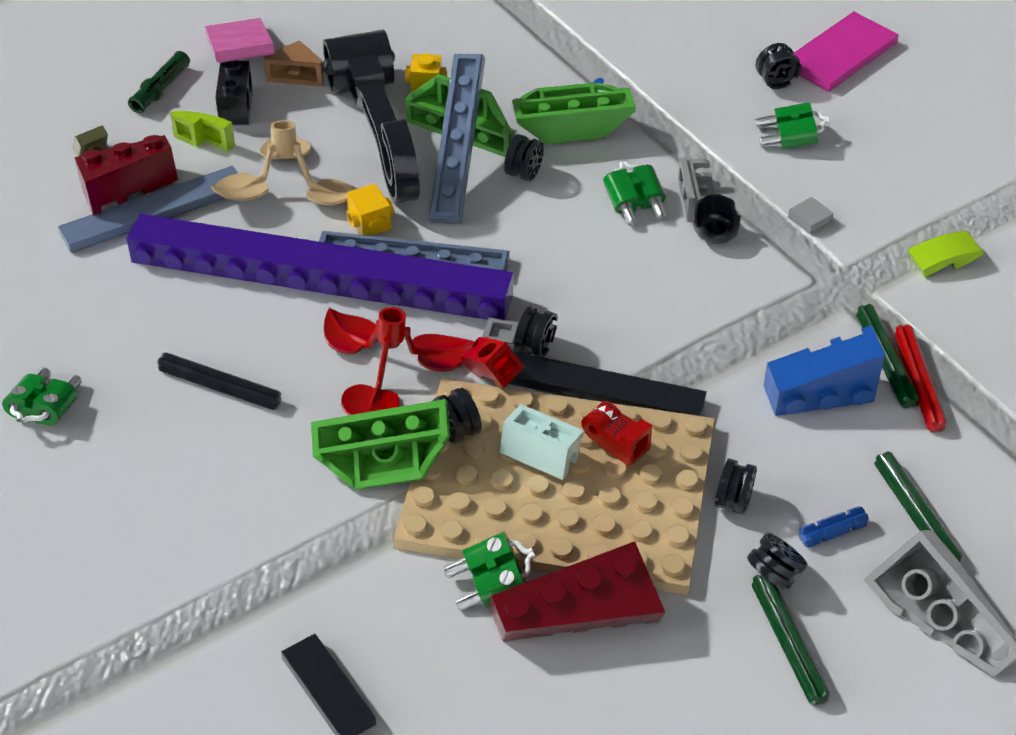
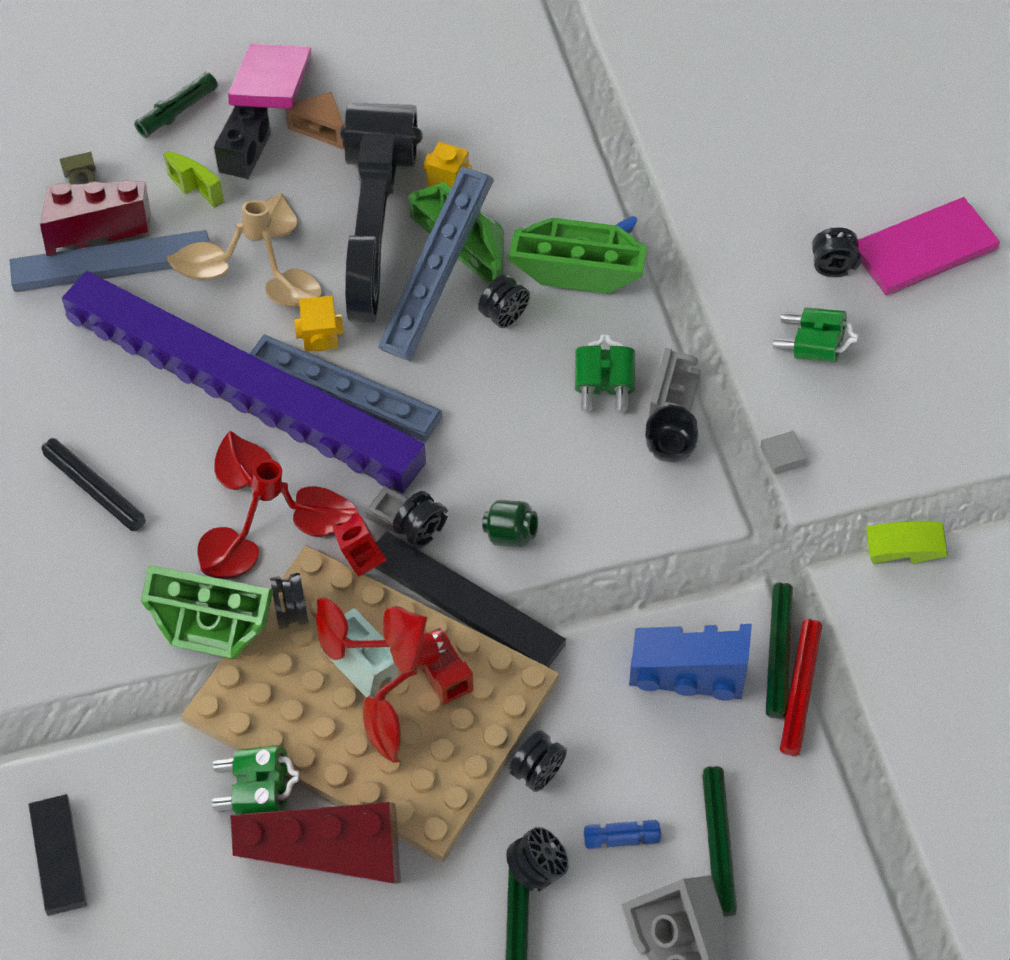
camera: 20 degrees right, 10 degrees up
(601, 389) = (409, 650): none -> red plant
(614, 317) = (510, 523): none -> dark green head

